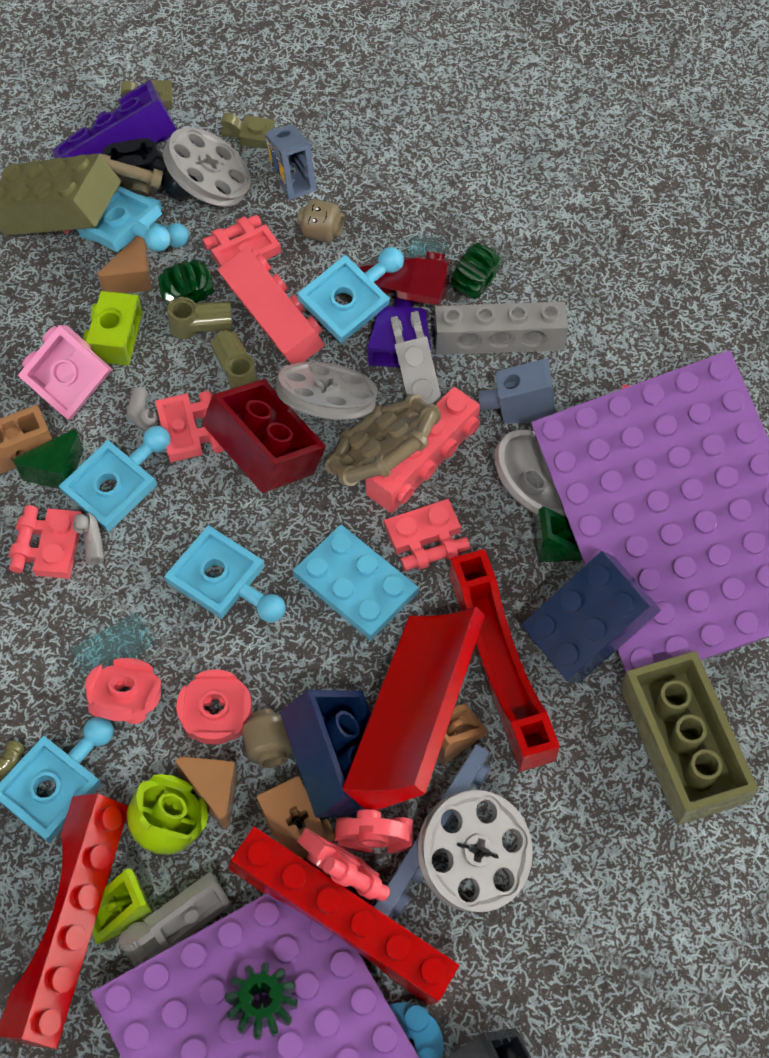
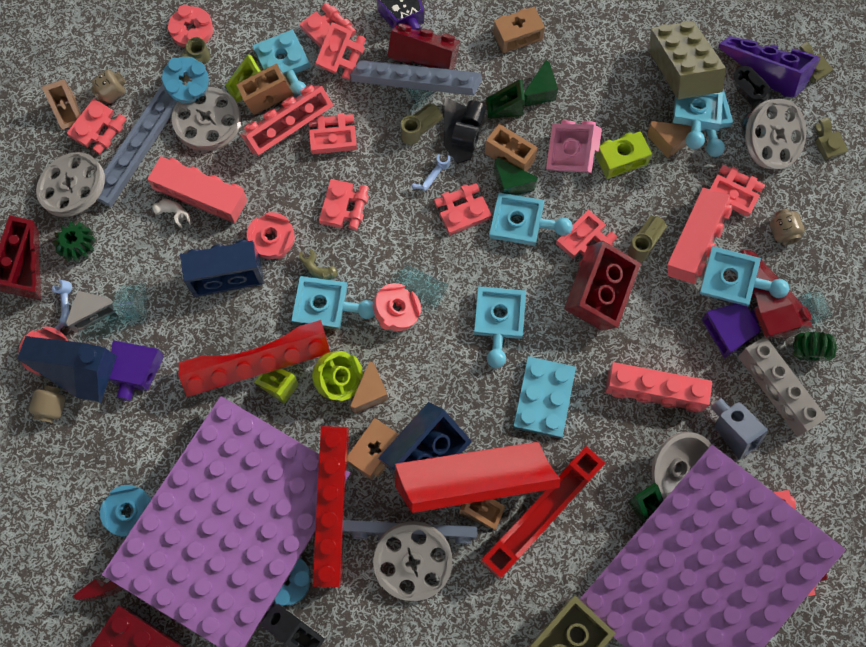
camera: 60 degrees right, 10 degrees up
(92, 537) = (479, 232): light grey arm -> none
(137, 179) = (737, 101): dark tan plate -> none
(138, 412) = (576, 205): light grey arm -> none
(175, 920) = (285, 416): light grey hinge -> none
(186, 280) = (680, 175): dark green gear -> none
(190, 317) = (665, 200): olive piece -> none
(199, 693) = (422, 351): coral plate -> none
(264, 1017) = (264, 494): dark green gear -> none
(266, 739) = (412, 402): dark tan head -> none
(287, 149) = (827, 171): sand blue torso -> none
(326, 390) = (657, 312): light grey wedge -> none
(343, 866) = (358, 490): coral plate -> none
(372, 831) = (390, 496): coral plate -> none
(382, 440) = (643, 357): dark tan plate -> none
(416, 361) = (715, 348): light grey hinge -> none
(422, 527) = (605, 416): coral plate -> none
(590, 617) = (600, 554): dark blue brick -> none

